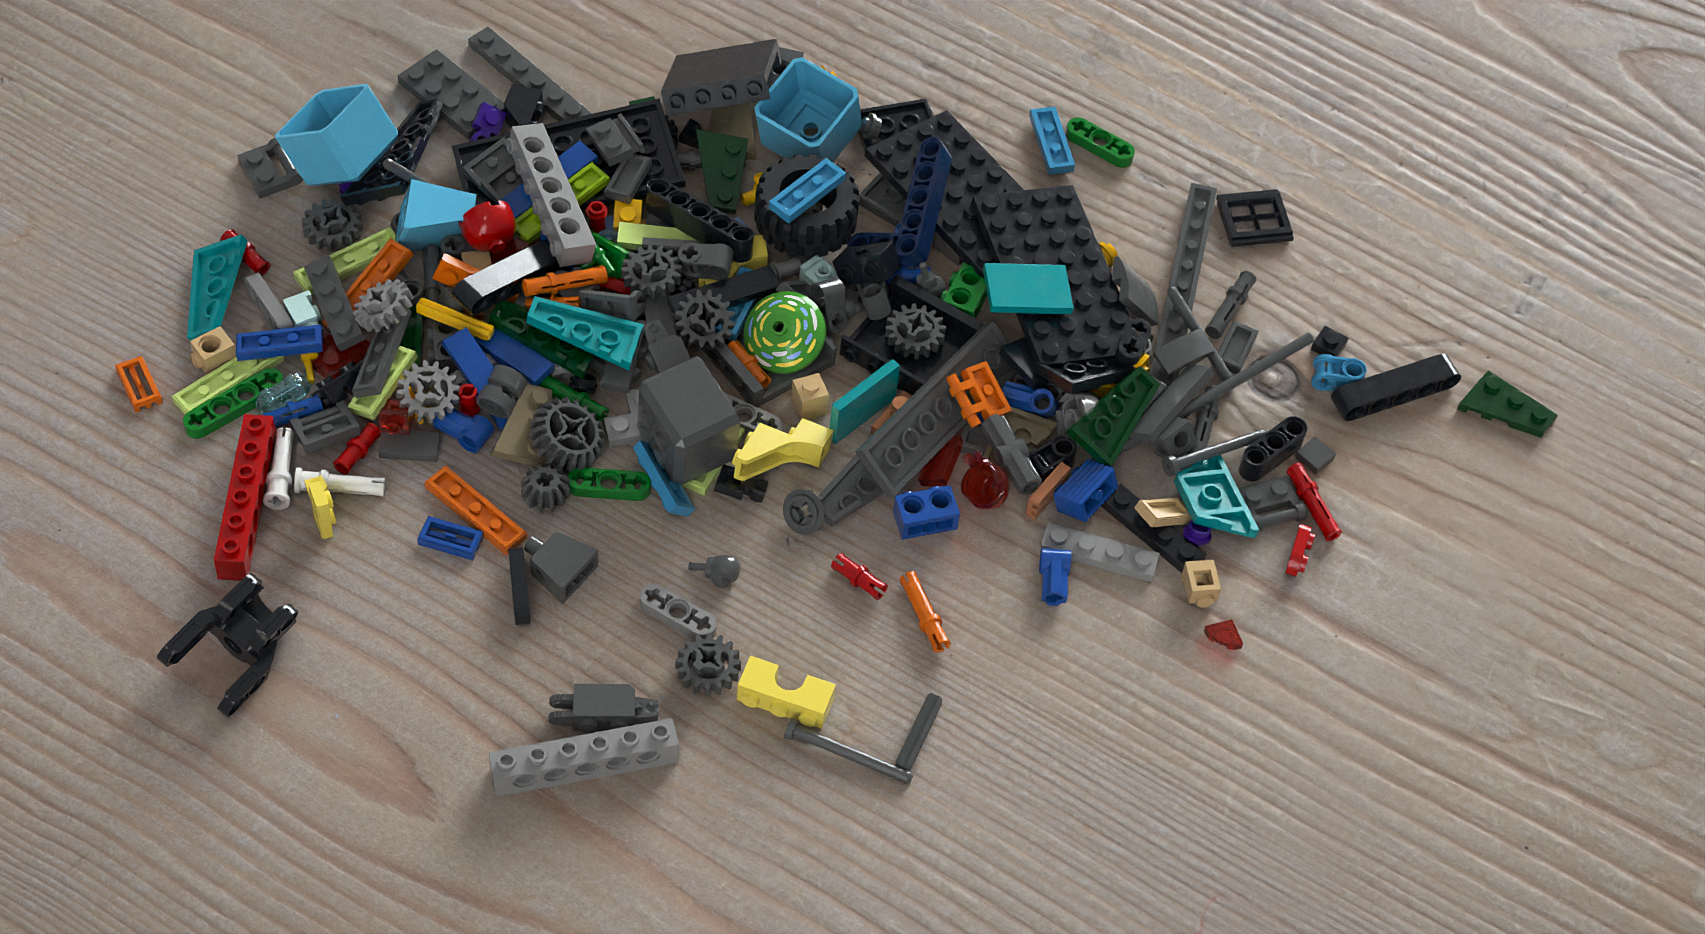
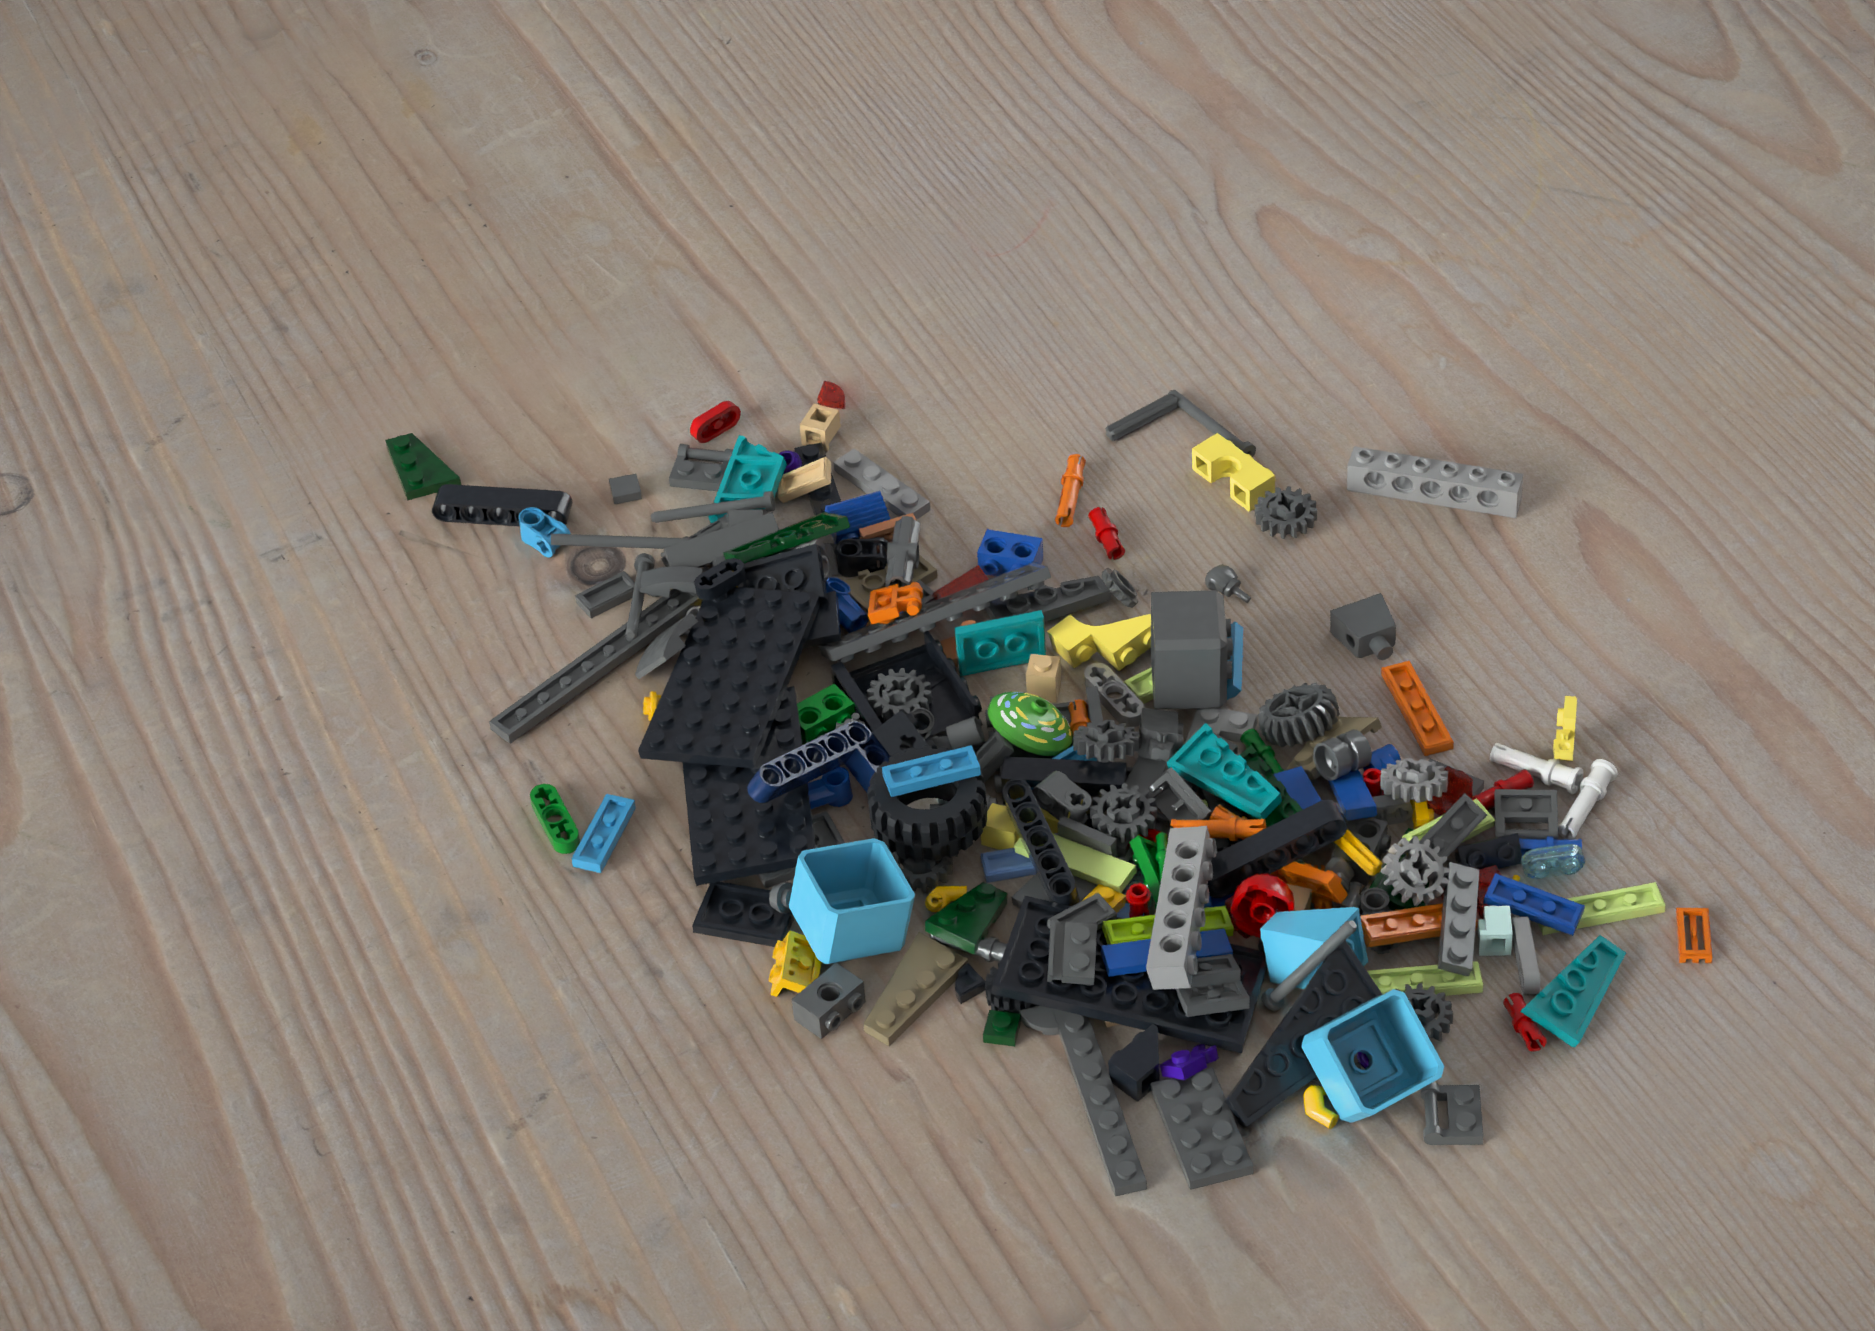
camera: 140 degrees left, 10 degrees down
(212, 350) = (1606, 921): tan brick -> none
(230, 399) = (1603, 876): green beam -> none
(244, 630) = (1683, 653): black piece -> none
(245, 497) = (1632, 779): red brick -> none
(449, 542) = (1450, 694): blue tile -> none
(519, 586) = (1414, 625): black beam -> none
(545, 487) = (1348, 689): dark grey gear -> none
(602, 708) = (1397, 512): dark grey hinge -> none
(617, 492) = (1261, 675): green beam -> none
(671, 601) = (1285, 576): light grey beam -> none
(720, 77) = (911, 970): black panel -> none
(984, 482) = (940, 549): clear red hat -> none
(1028, 288) = (779, 646): teal tile -> none
(1055, 569) = (935, 479): blue piece -> none
(1235, 296) = (568, 628): dark grey pin -> none
(1254, 217) = (474, 693): black piece -> none
(1272, 448) = (643, 498): black beam -> none
(1308, 492) = (662, 459): red pin -> none
(1329, 342) = (519, 567): black plate -> none

